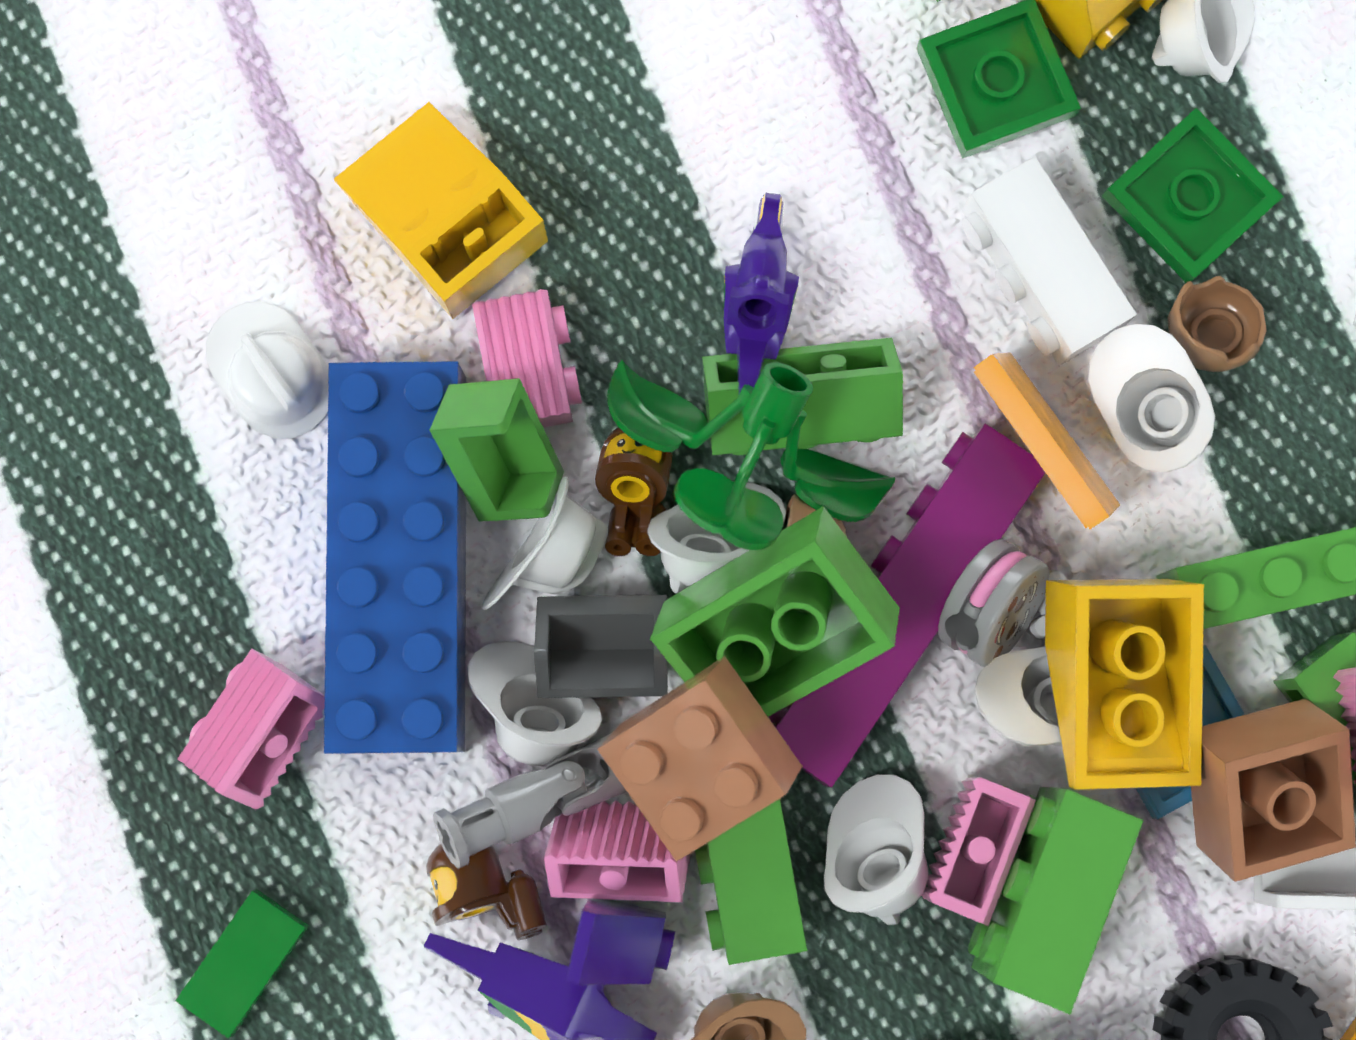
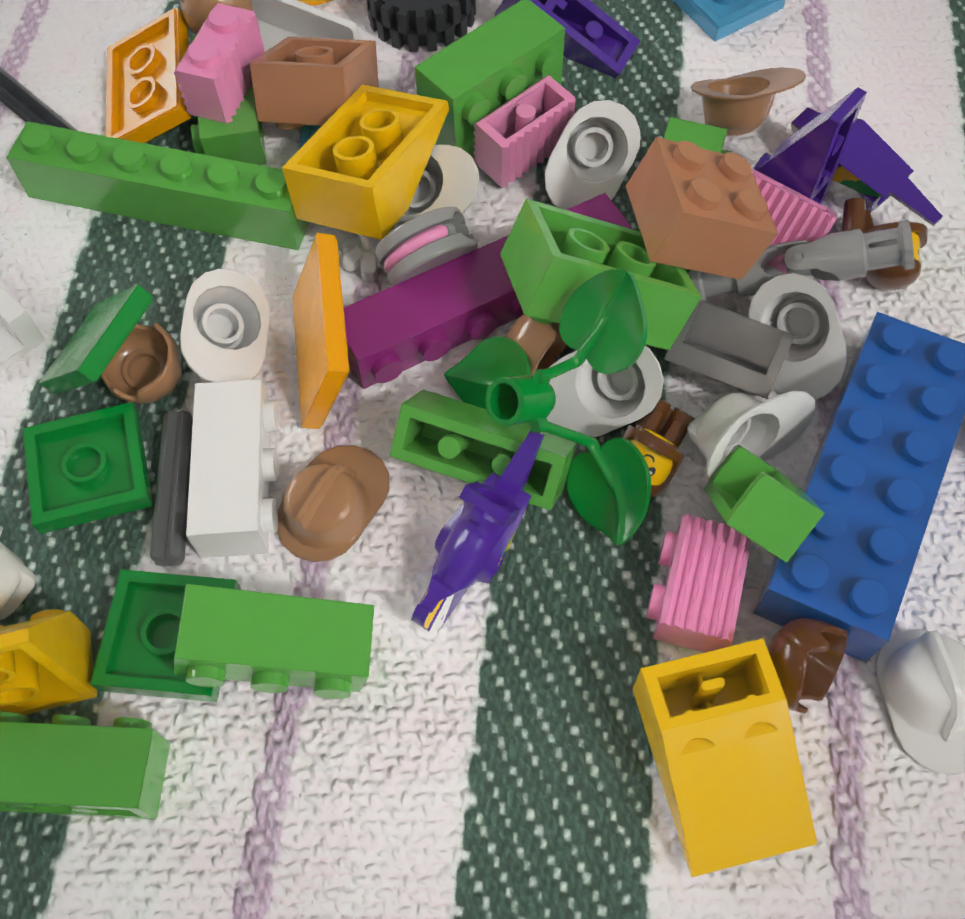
camera: 150 degrees left, 20 degrees down
(410, 326) = (807, 659): none -> reddish brown hair
(890, 102) = (273, 641): none -> bright green brick
(929, 292) = (332, 502): none -> medium nougat piece
(1096, 220) = (172, 490): none -> dark grey axle
(1278, 318) = (97, 340): none -> green tile

